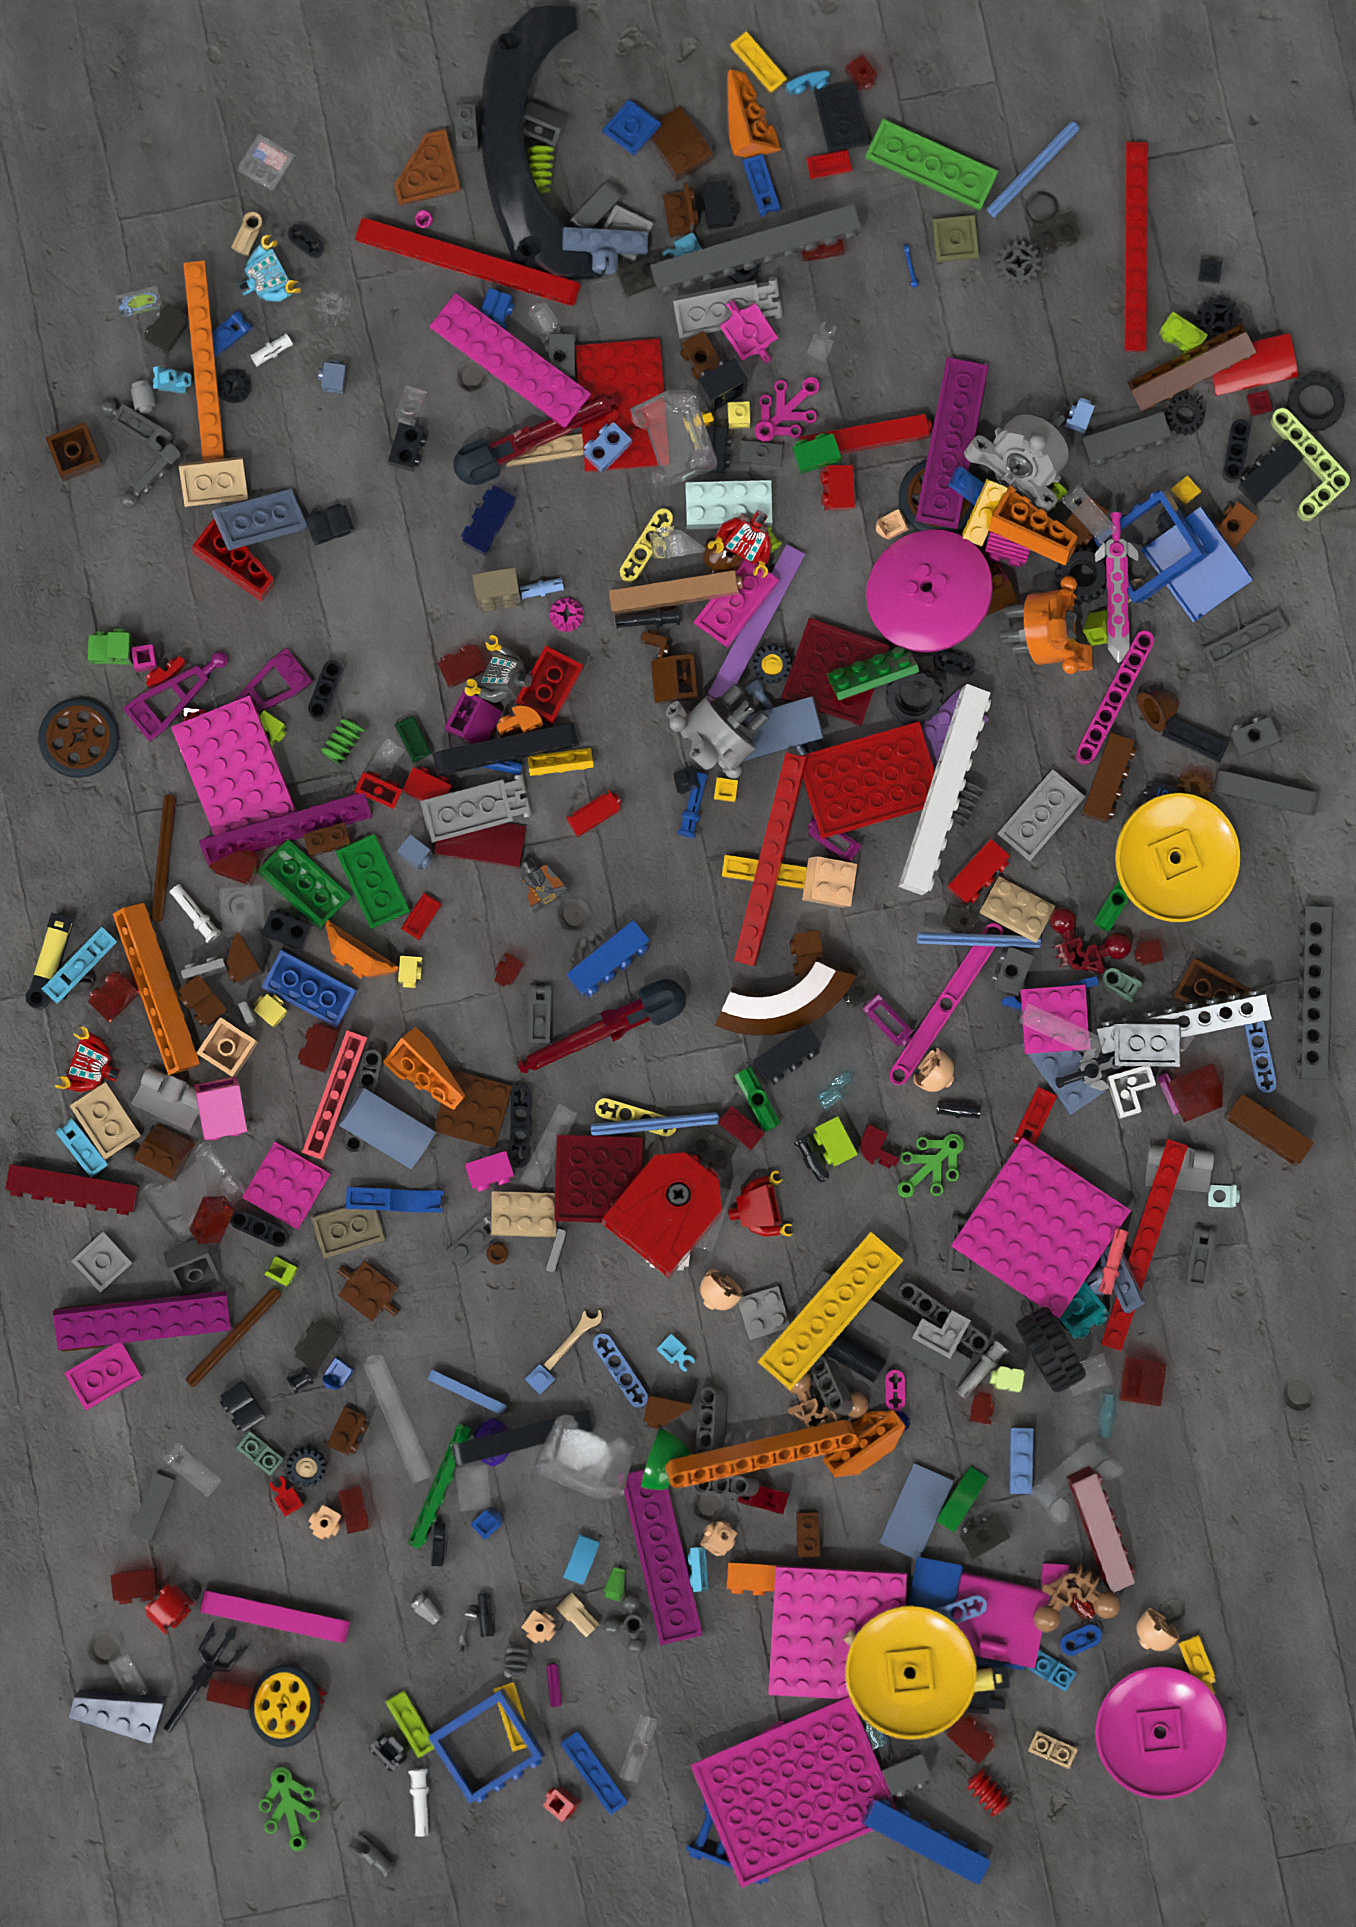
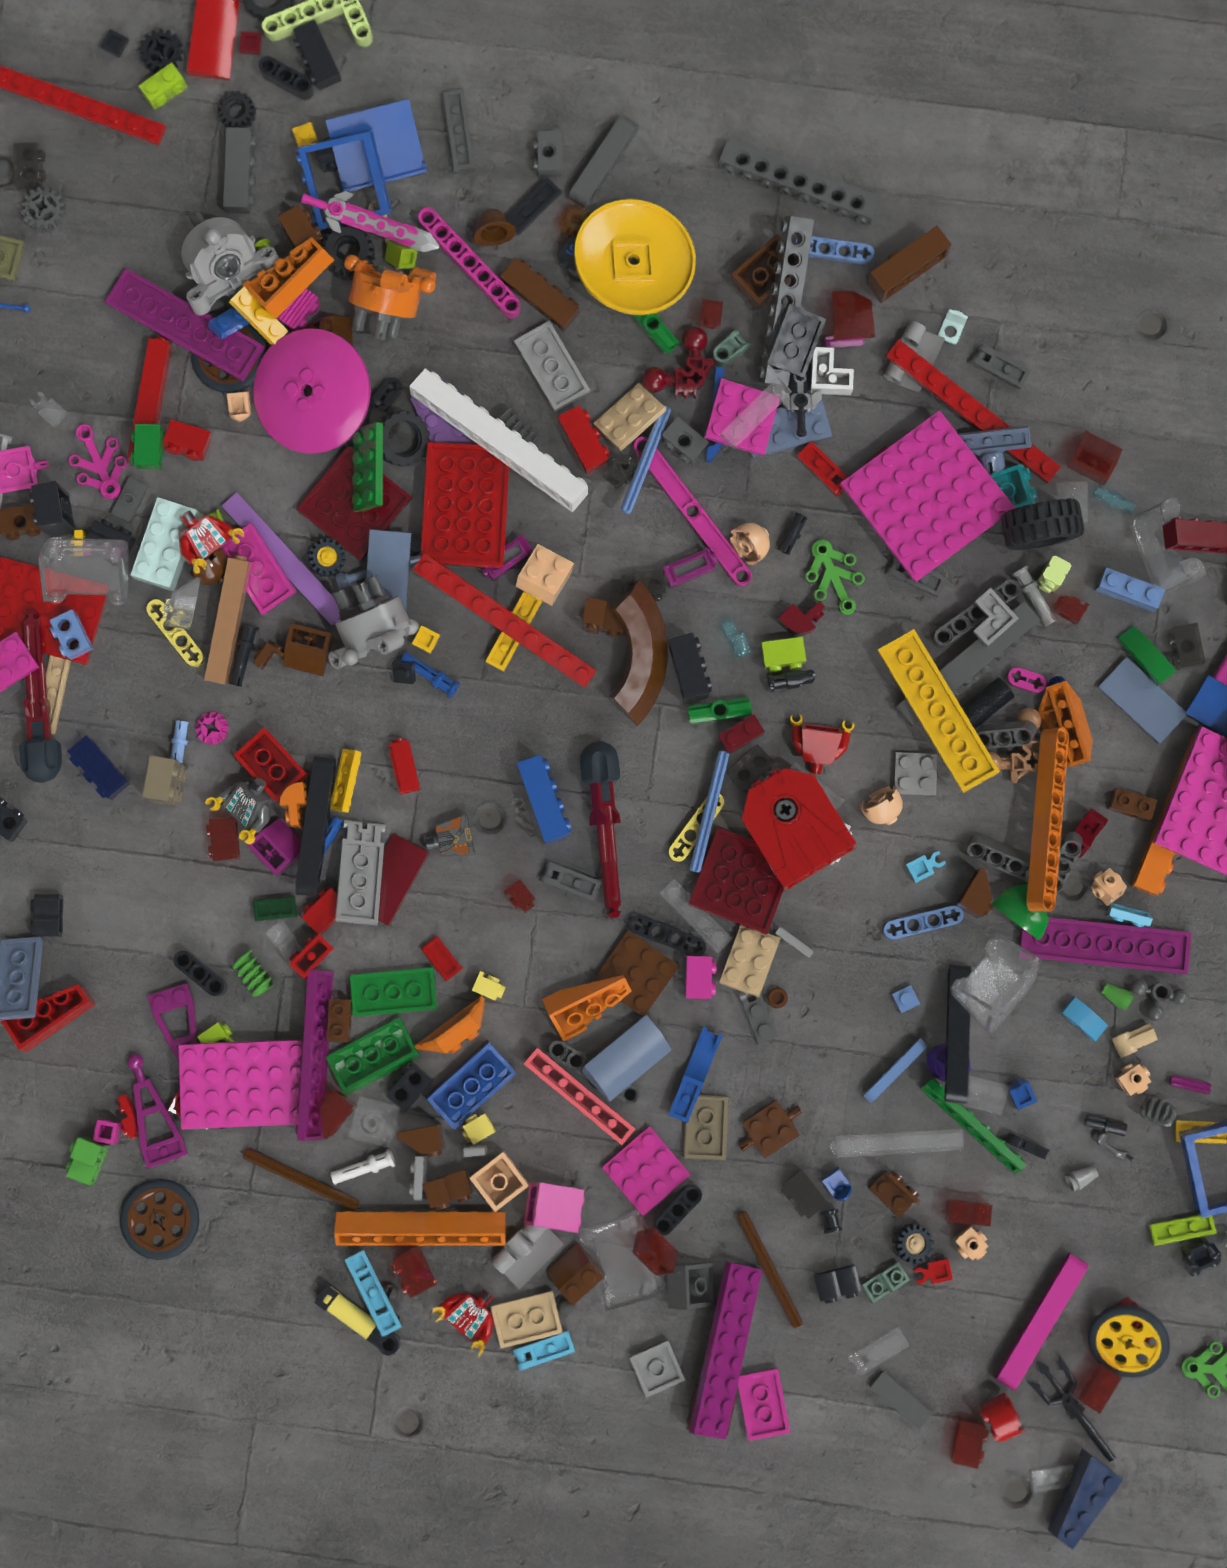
camera: 65 degrees left, 0 degrees up
(71, 1188) = (578, 1373): dark red brick -> none
(281, 1271) = (724, 1203): lime panel -> none
(318, 1048) = (530, 1096): clear red brick -> none
(415, 853) = (382, 943): sand blue brick -> none
(584, 1325) = (870, 941): tan piece -> none
(738, 415) = (86, 506): light yellow brick -> none
(1080, 415) = (202, 202): light blue brick -> none
(1090, 515) = (296, 219): clear plate -> none
(1113, 1261) = (987, 445): coral pin -> none
(1191, 367) = (195, 86): reddish brown brick -> none
(1242, 518) = (348, 94): dark orange brick -> none

